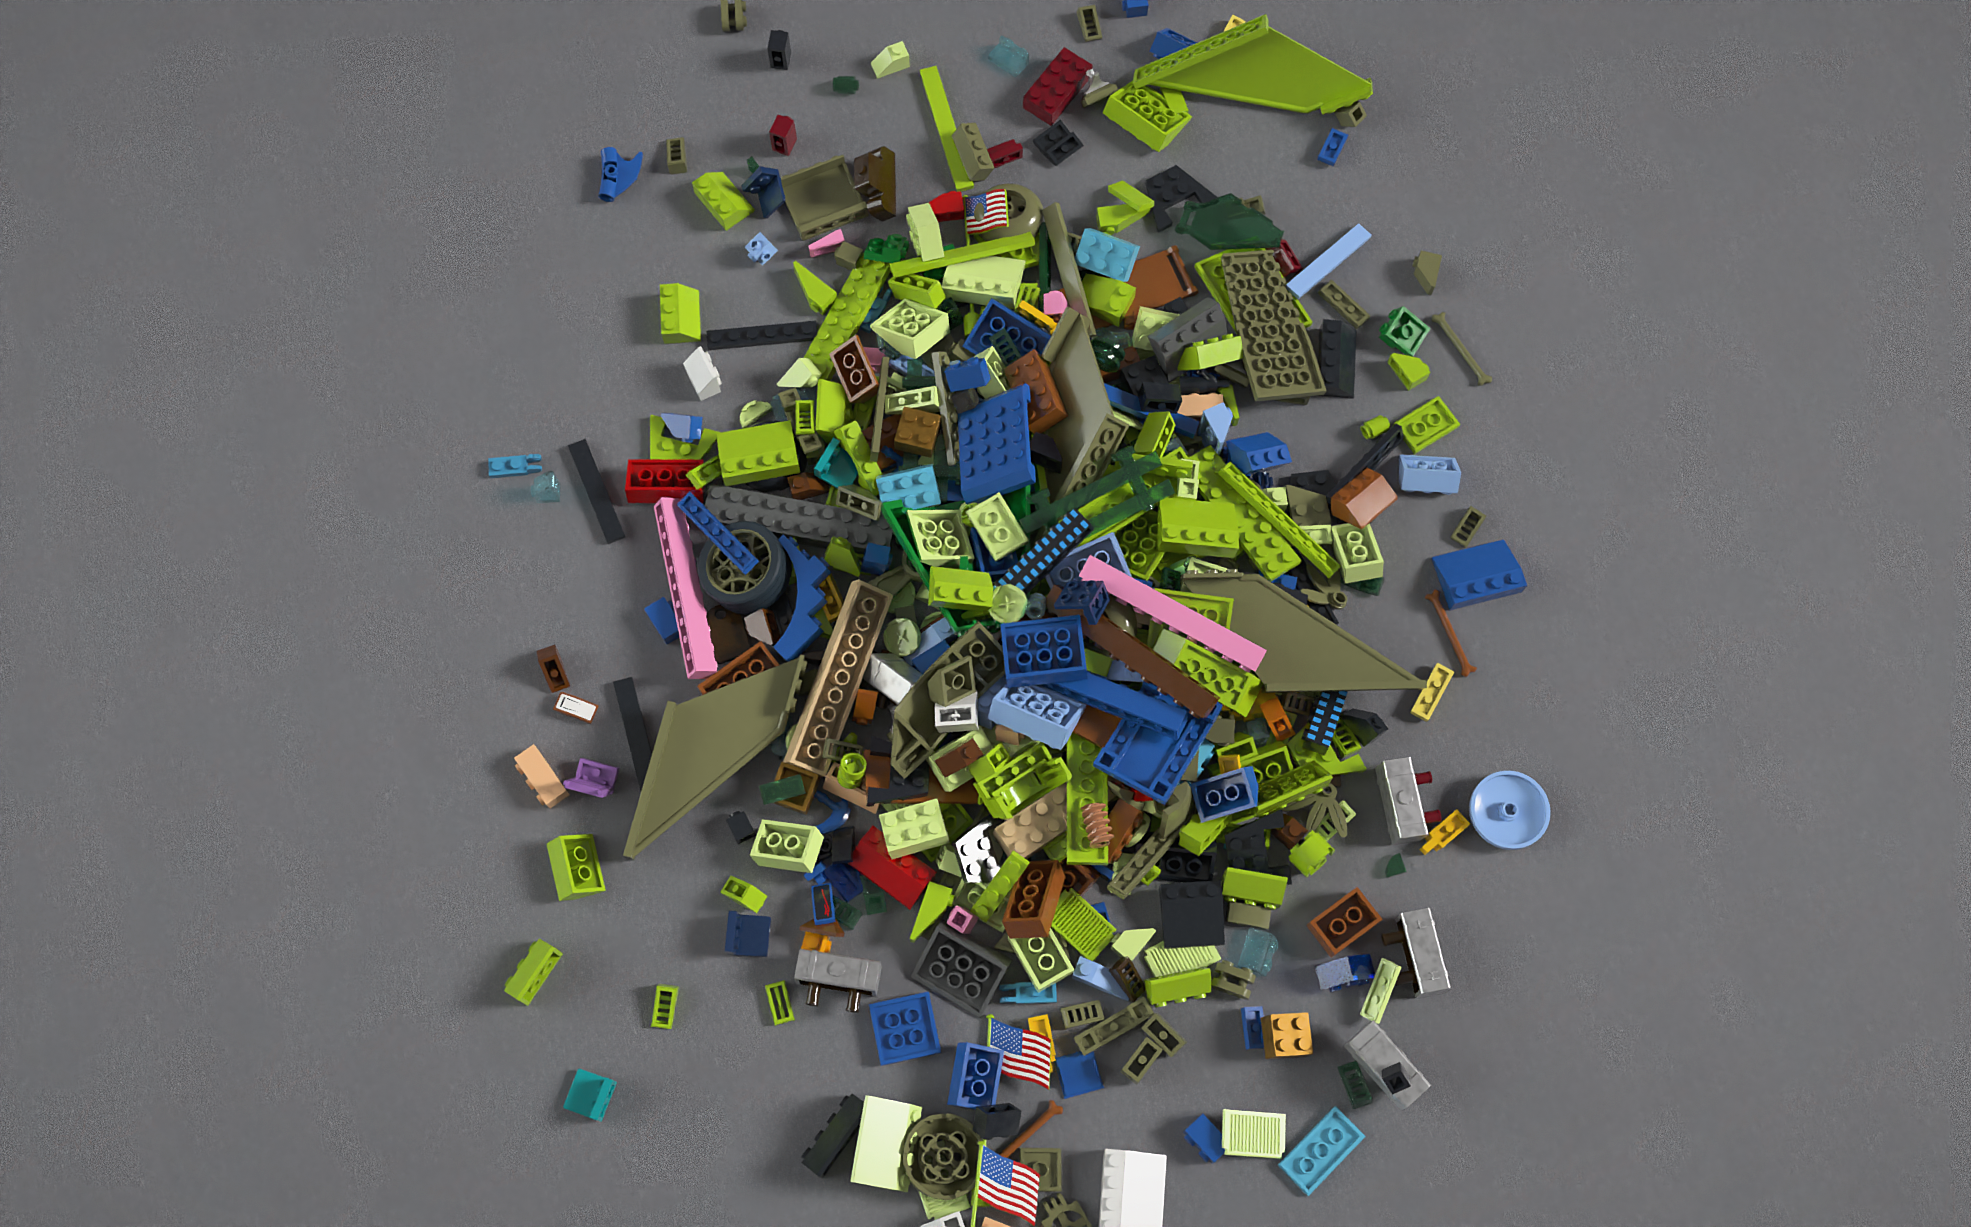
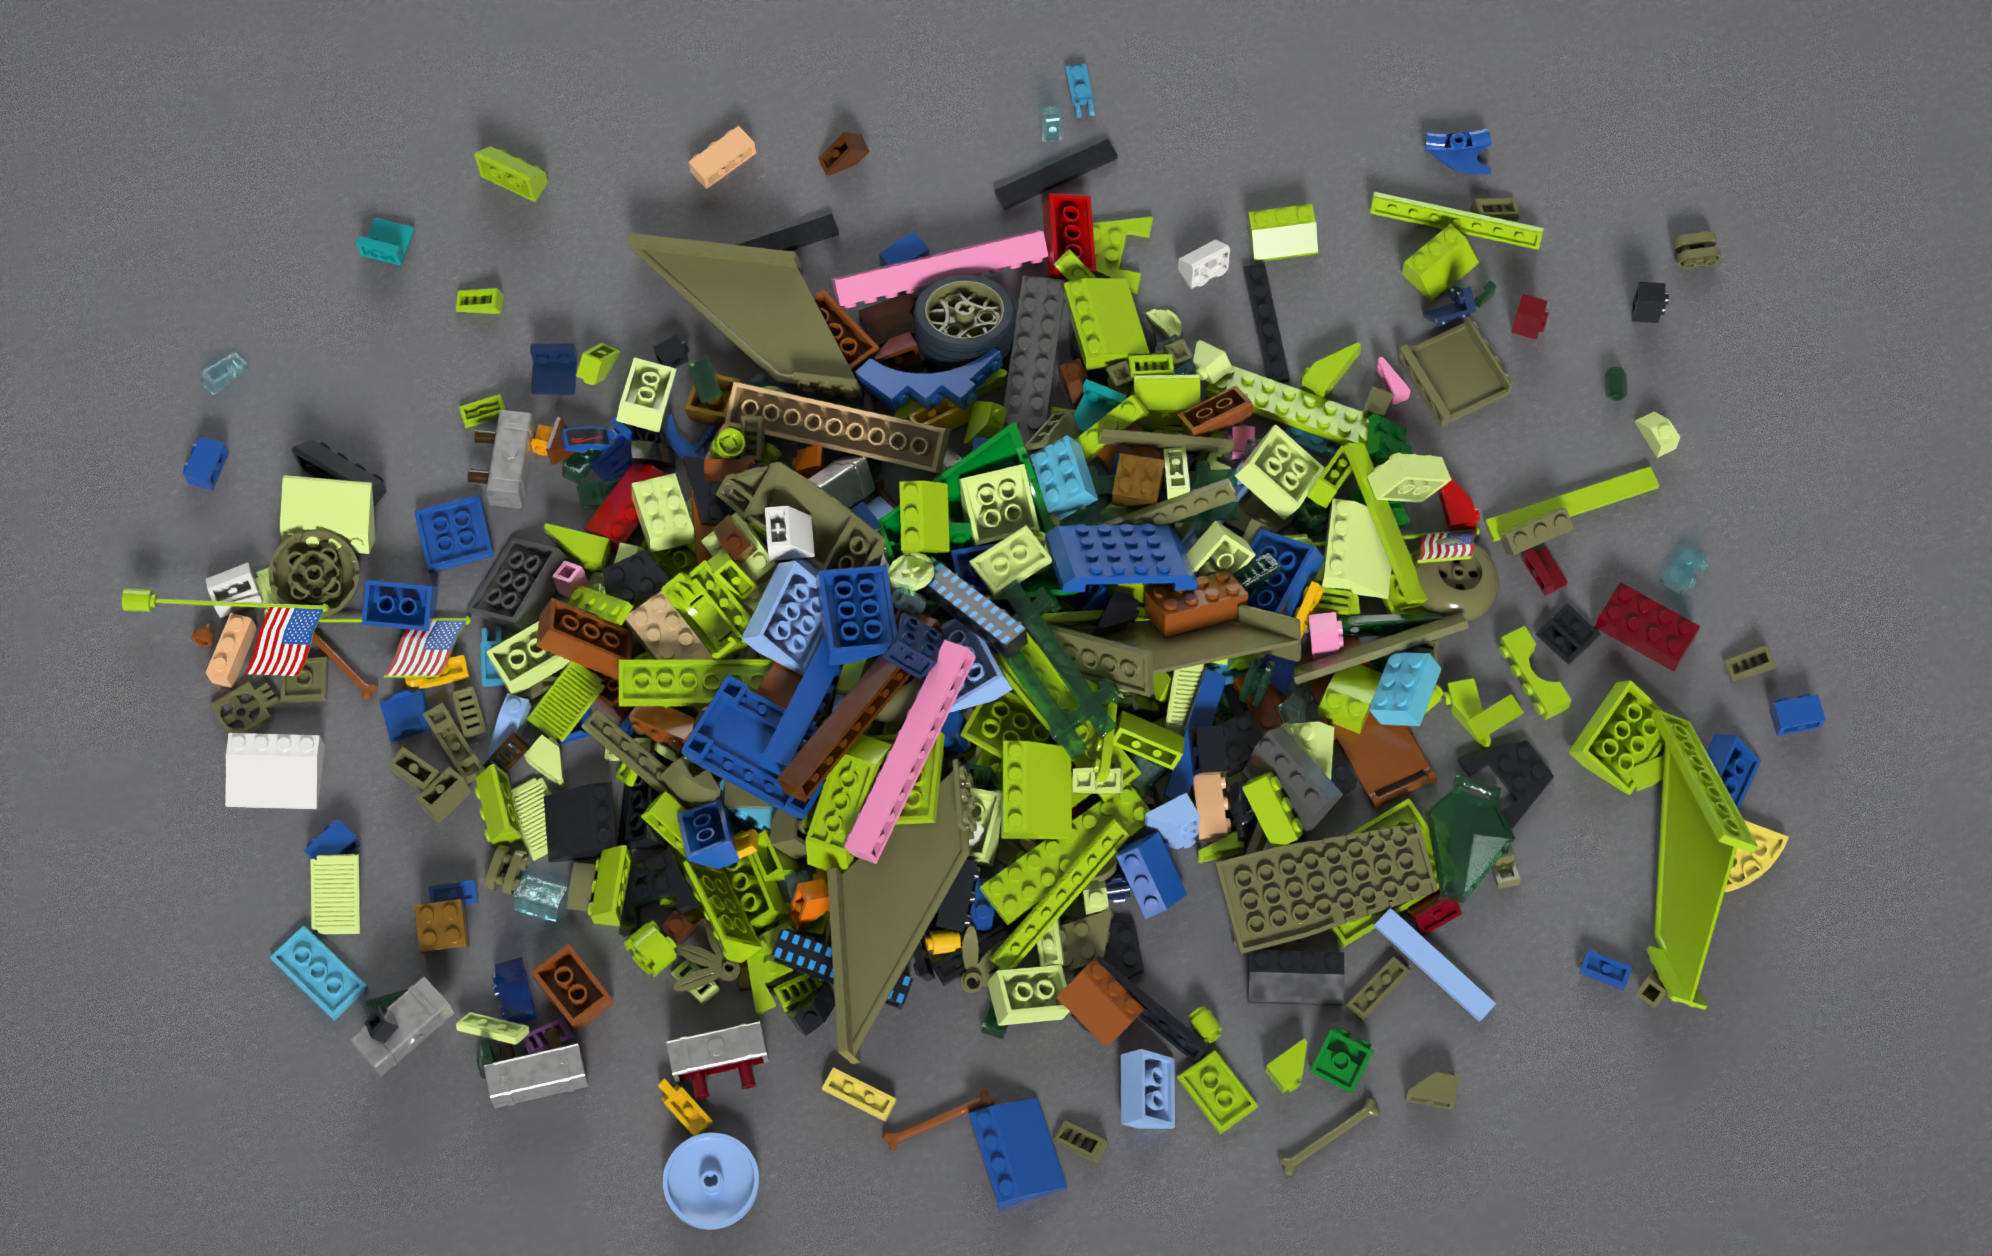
camera: 90 degrees right, 5 degrees down
(575, 707) = (801, 181): white slope -> none
(575, 866) = (625, 201): lime slope -> none
(593, 778) = (716, 205): medium lavender plate -> none
(683, 426) = (1139, 249): slope -> none
(684, 183) = (1463, 221): none -> lime tile
(717, 533) = (998, 286): blue tile -> none
(760, 249) = (1375, 308): light blue brick -> none
(877, 180) = (1479, 424): dark brown brick -> none
(902, 637) = (887, 494): yellowish green tile -> none
(952, 682) = (815, 522): olive slope -> none
(965, 400) = (1181, 526): clear smoke brick -> none
(967, 374) = (1205, 520): blue brick -> none
(996, 1121) = (351, 624): black brick -> none
(1071, 176) = (1548, 697): none -> lime arch
(1096, 825) = (659, 685): nougat piece -> none
(1097, 89) = (1647, 672): piece -> none
(1393, 949) = (535, 1034): none -> medium lavender slope
(1395, 866) = (643, 1052): clear green tile -> none
(1407, 997) = (484, 1056): none -> clear green slope

